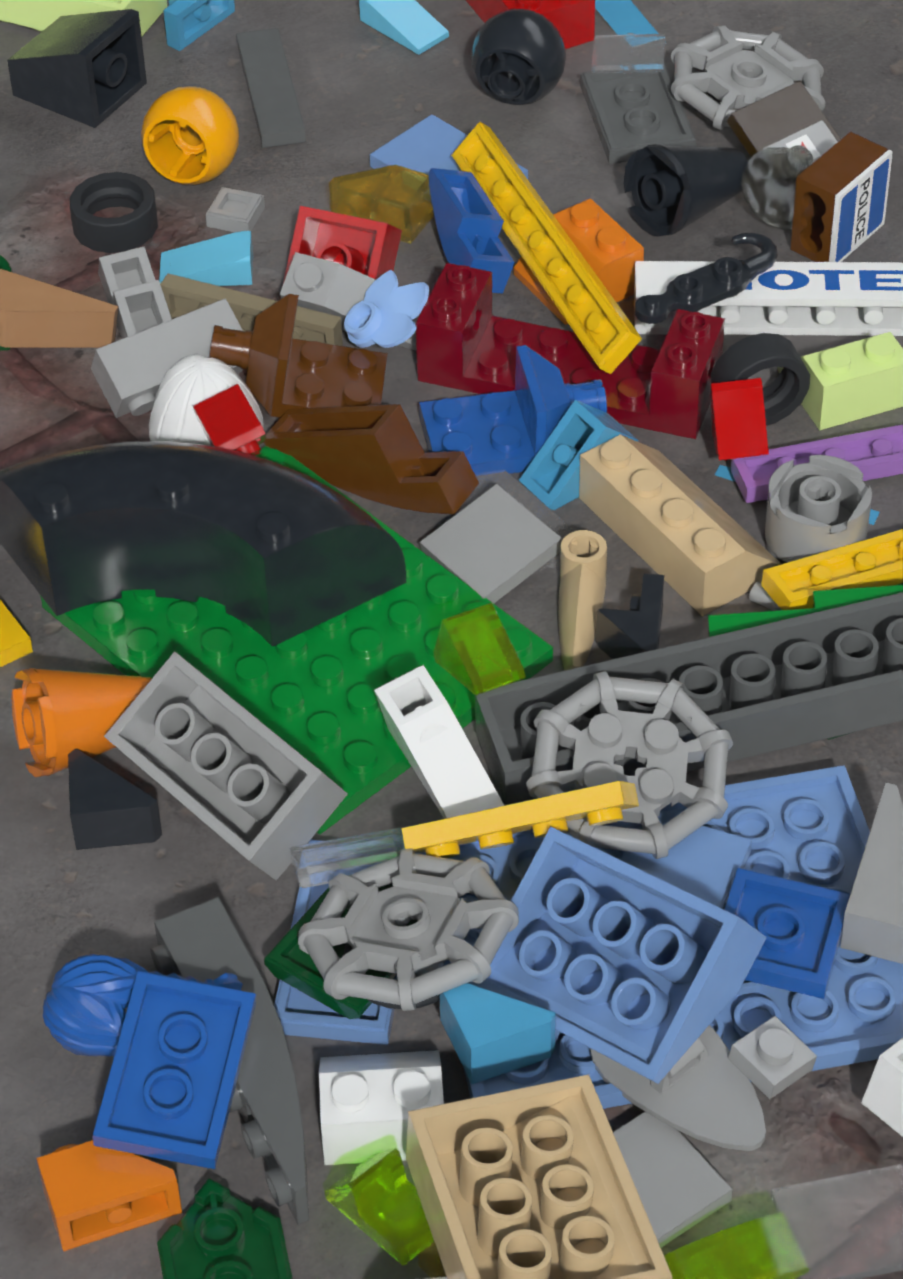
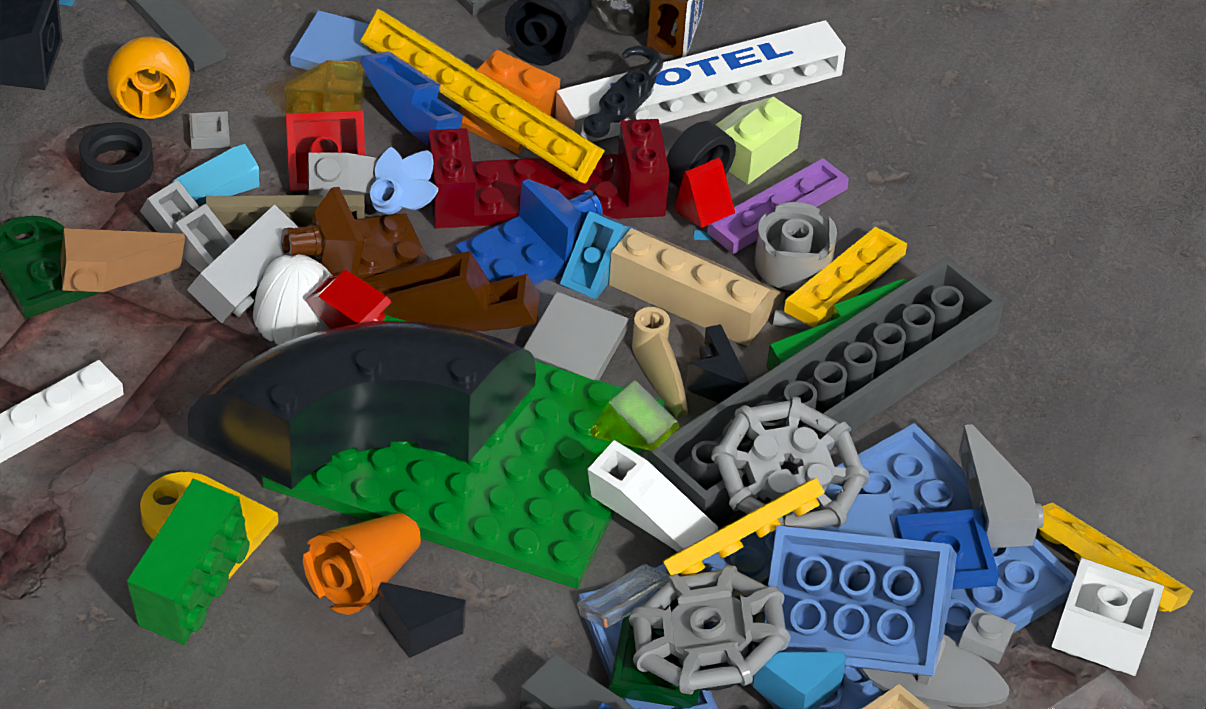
camera: 30 degrees left, 0 degrees up
(225, 766) = (499, 558): light grey brick -> none

